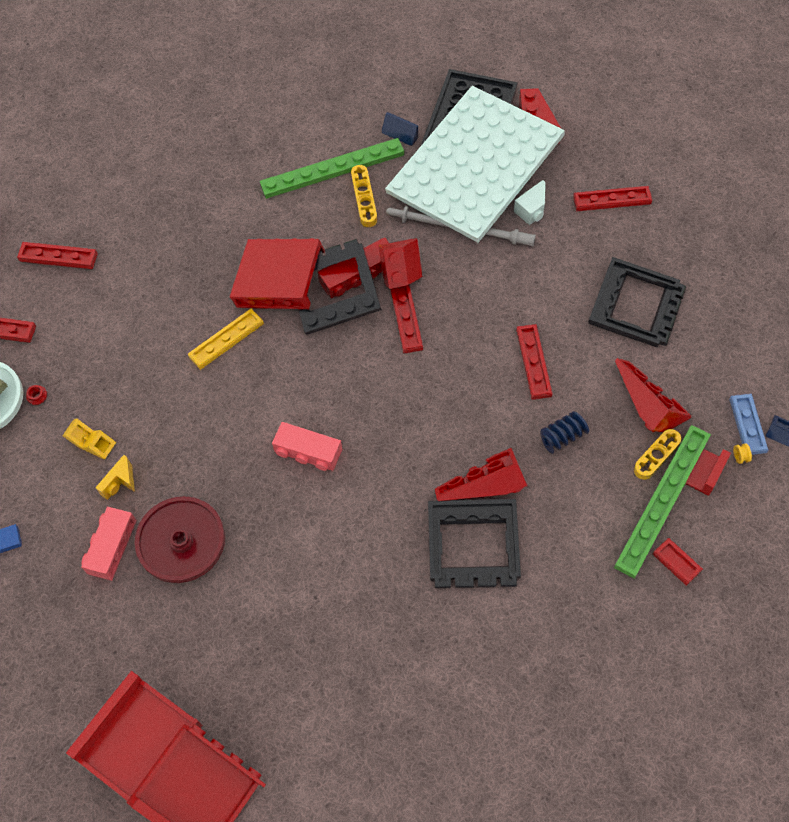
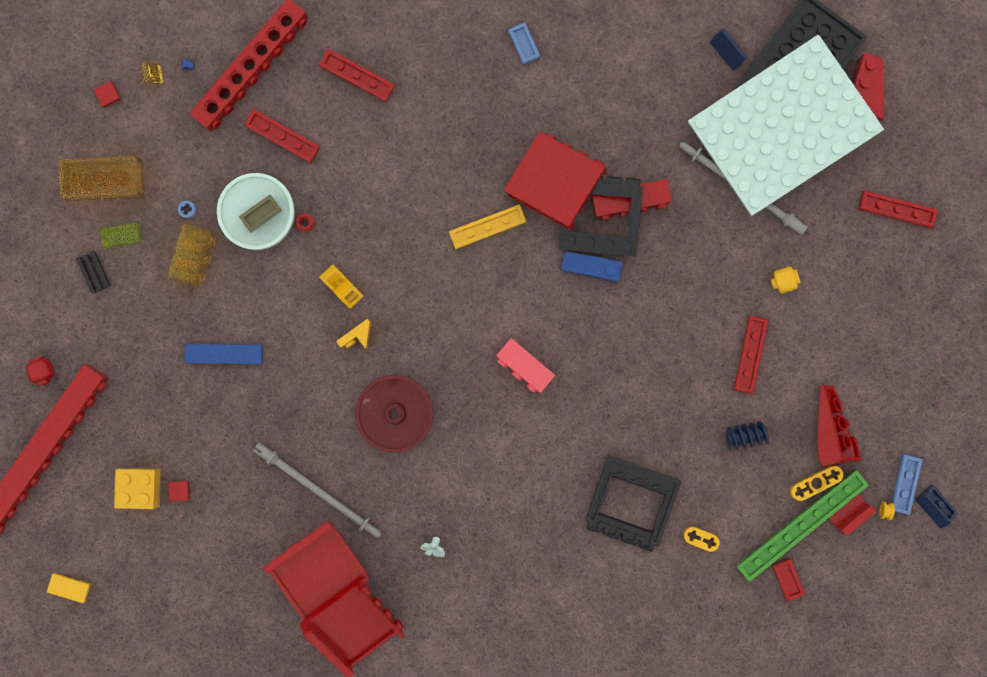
camera: 15 degrees right, 25 degrees up
(54, 637) = (273, 459): none -> light grey bar
(108, 543) = (334, 392): coral brick -> none
(211, 184) = (524, 43): none -> medium blue tile
(269, 670) = (433, 547): none -> light aqua plant
(331, 168) = (647, 69): bright green plate -> none
(344, 335) = (592, 266): none -> blue slope
(364, 196) = (663, 115): yellow beam -> none
(400, 262) = (670, 215): red slope -> none
(406, 319) = (656, 265): red tile -> none
(497, 477) = (668, 454): red wedge -> none
(531, 204) = (820, 190): light aqua slope -> none
(536, 284) = (785, 280): none -> yellow head
(564, 558) = (699, 543): none -> yellow beam
(609, 294) = (846, 314): black hinge -> none

